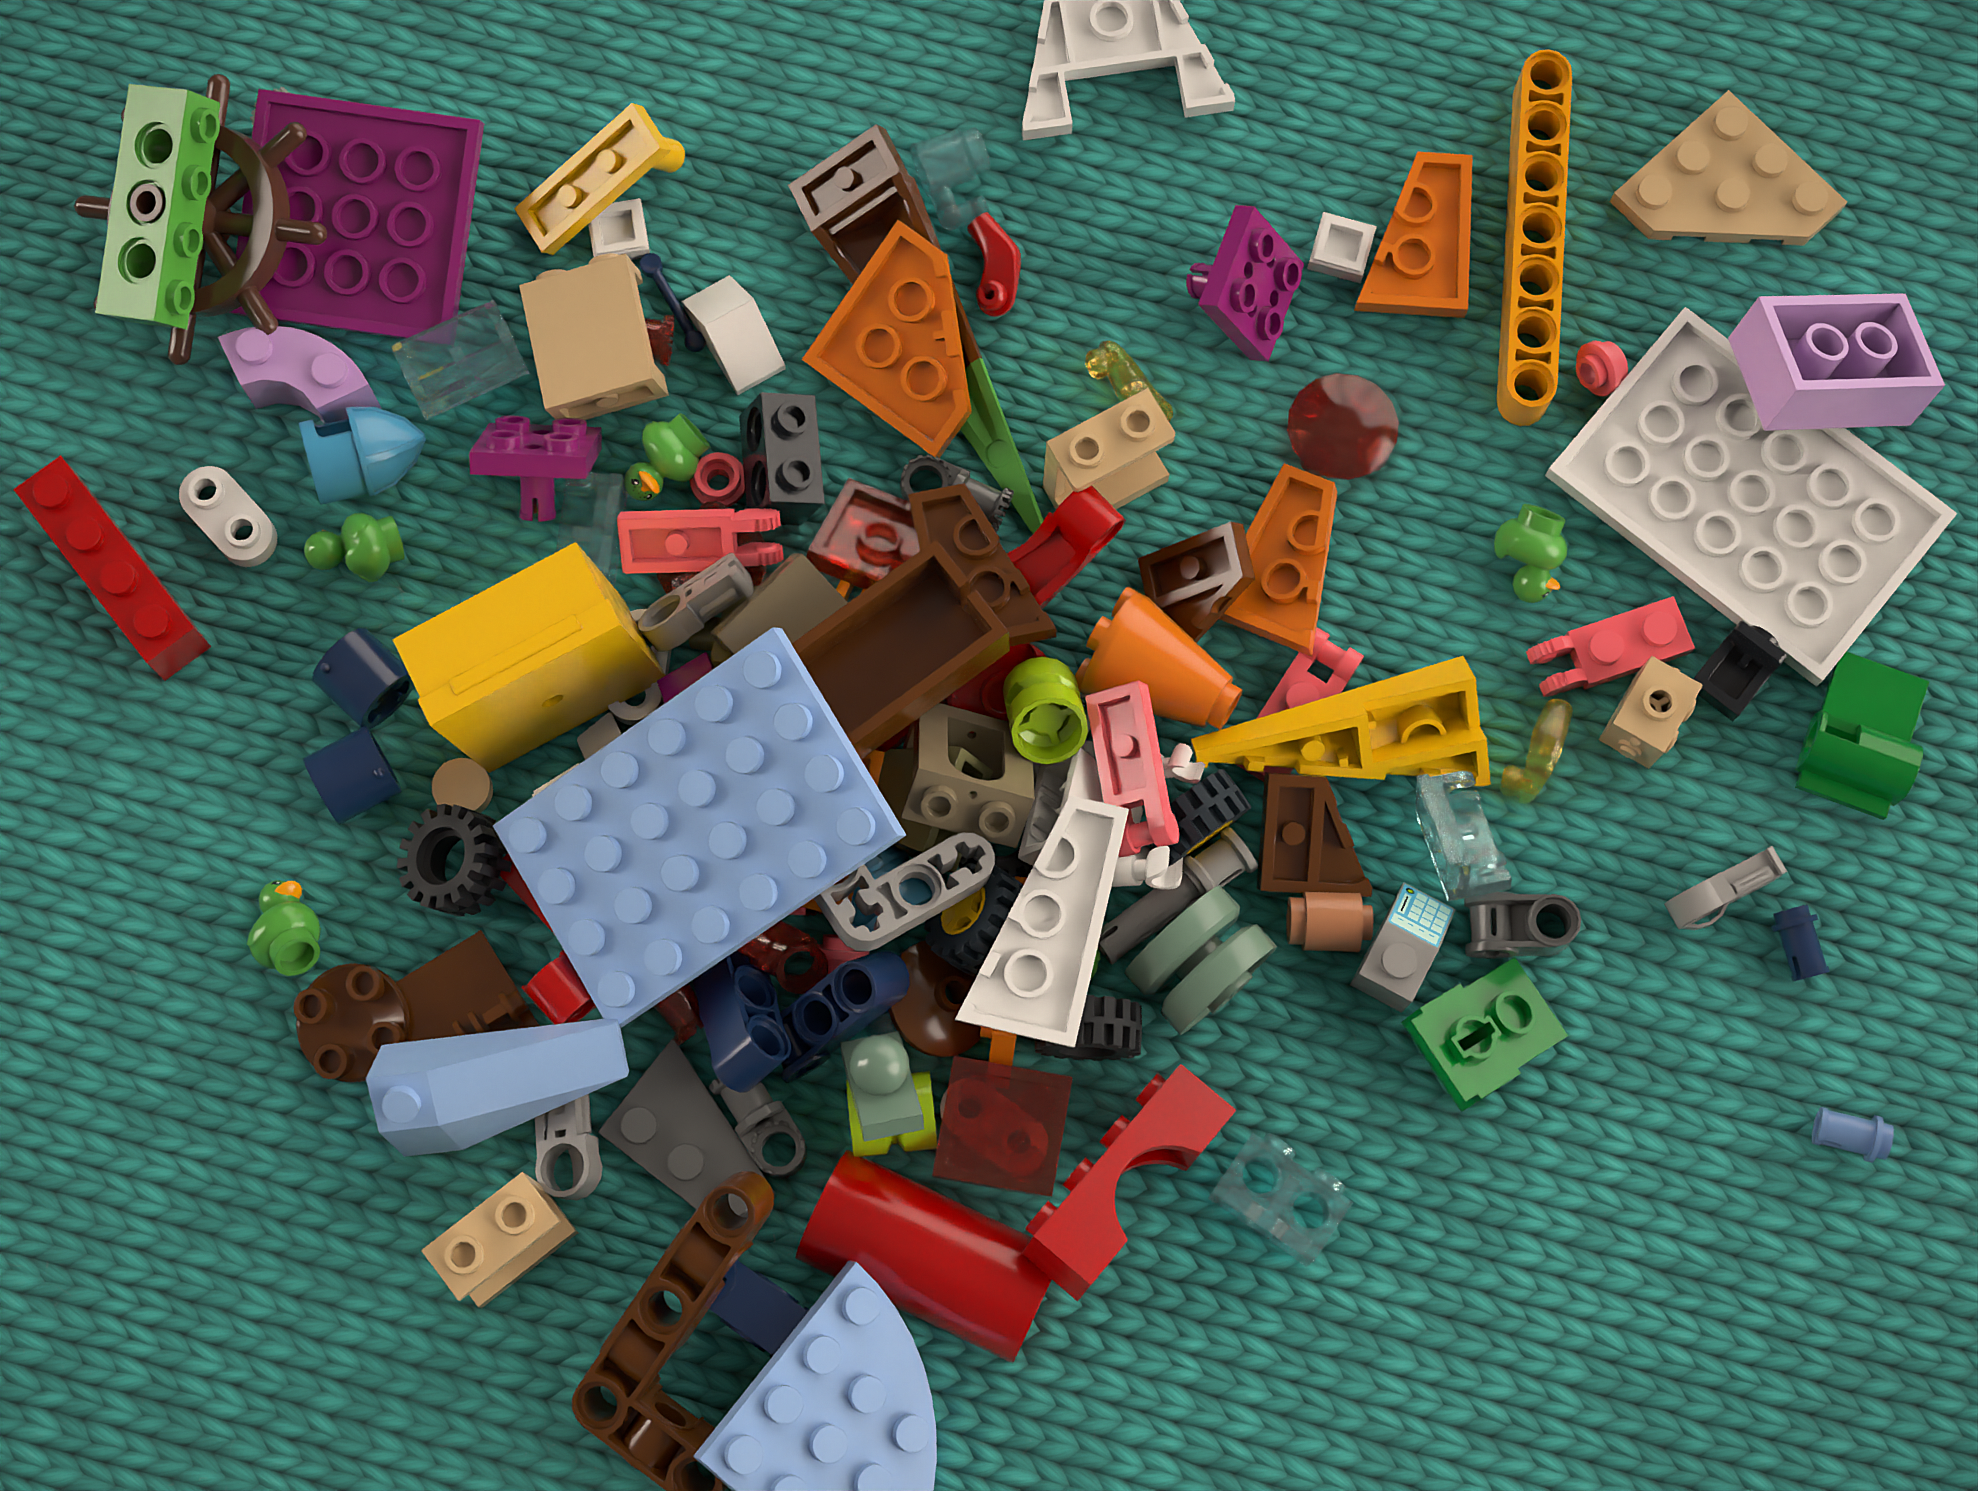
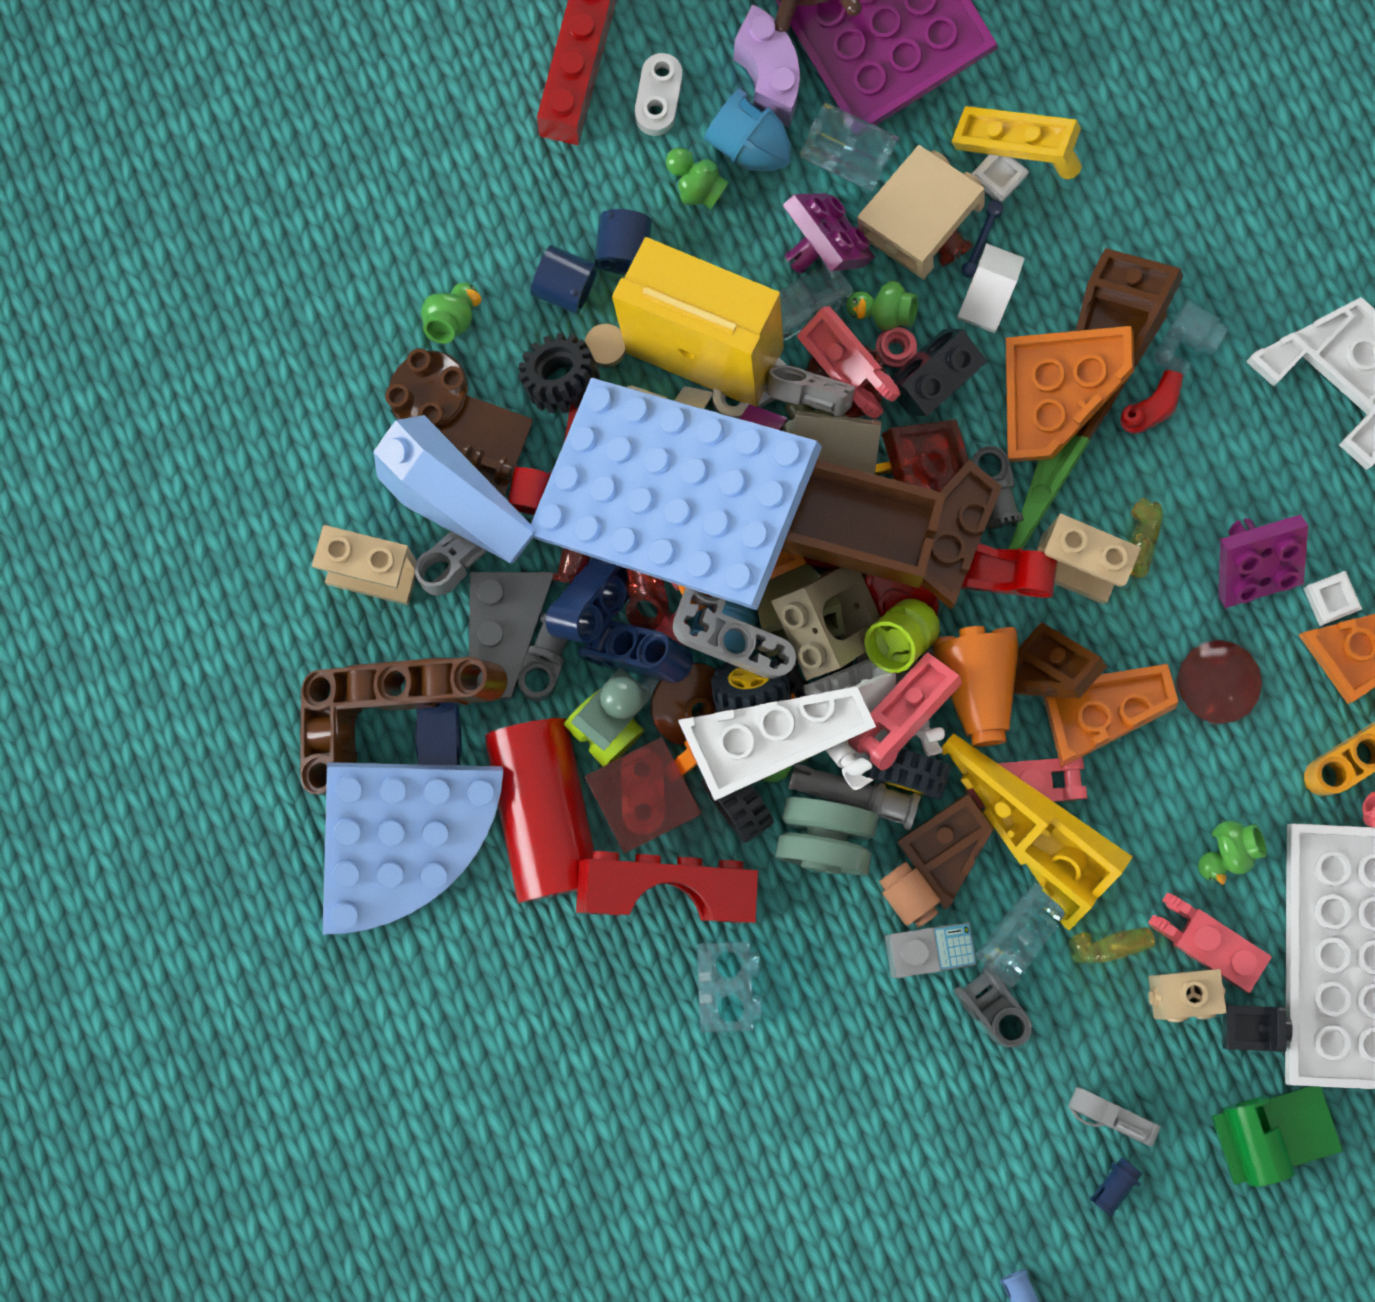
camera: 50 degrees right, 5 degrees up
(1484, 1032) = (915, 1035): green piece -> none

